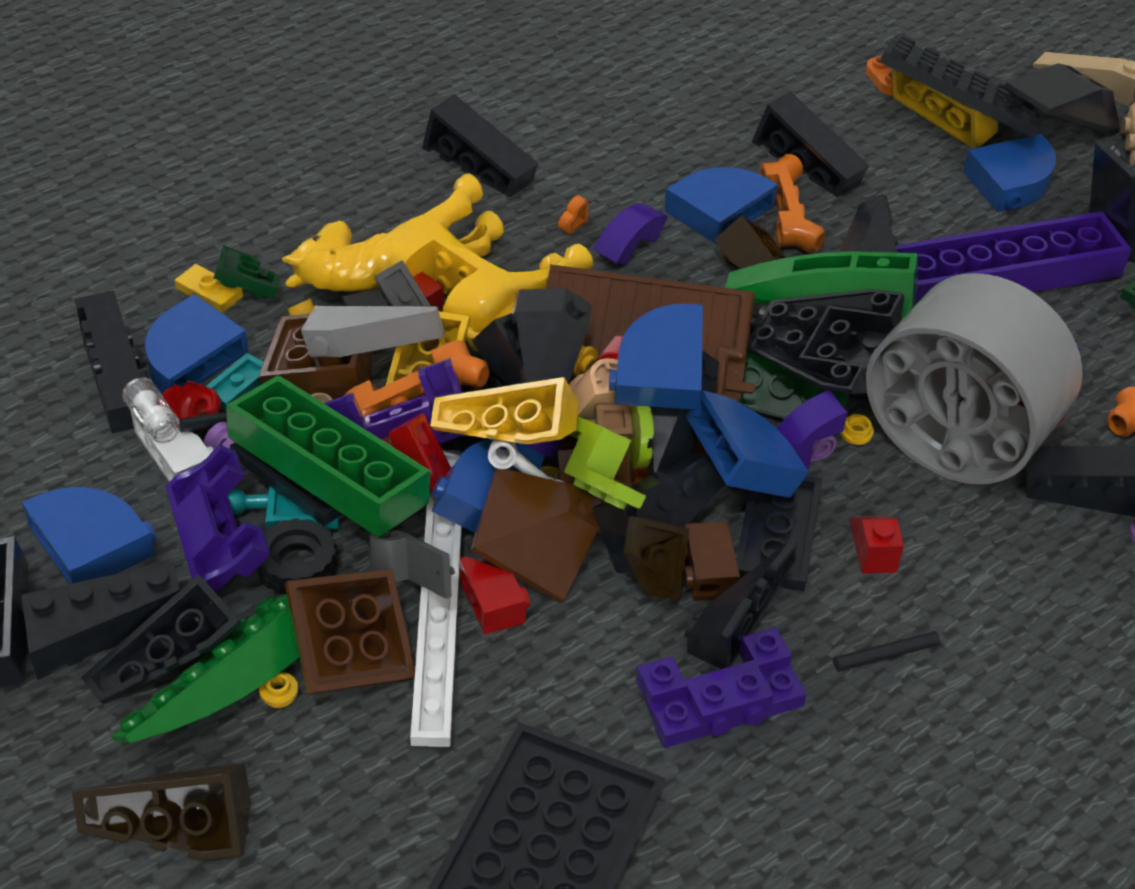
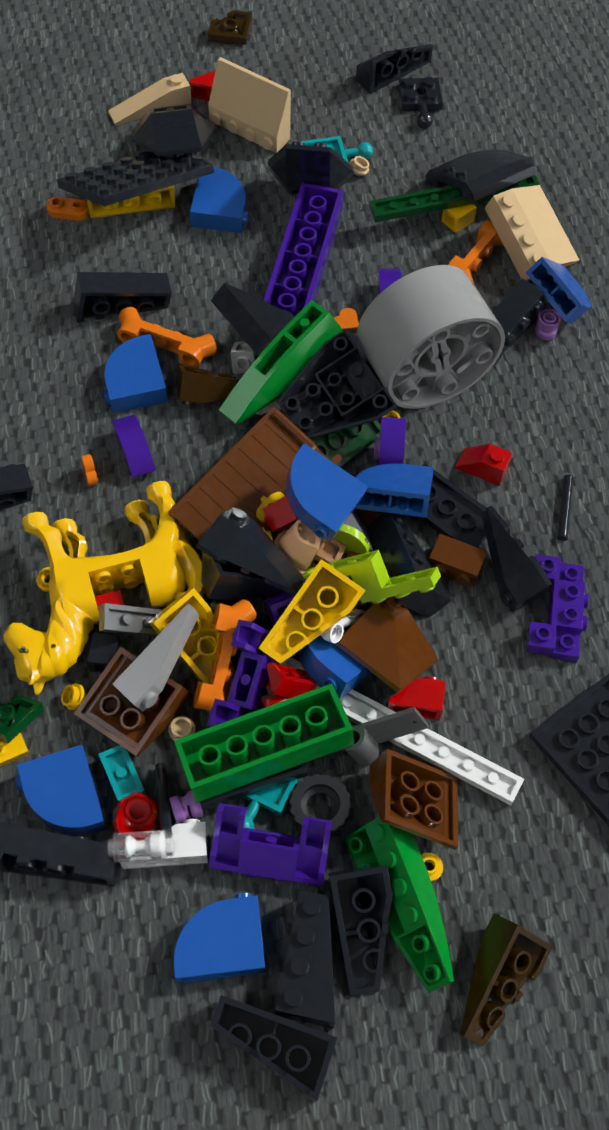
camera: 60 degrees left, 15 degrees up
(656, 556) = (452, 587): dark brown plate -> none

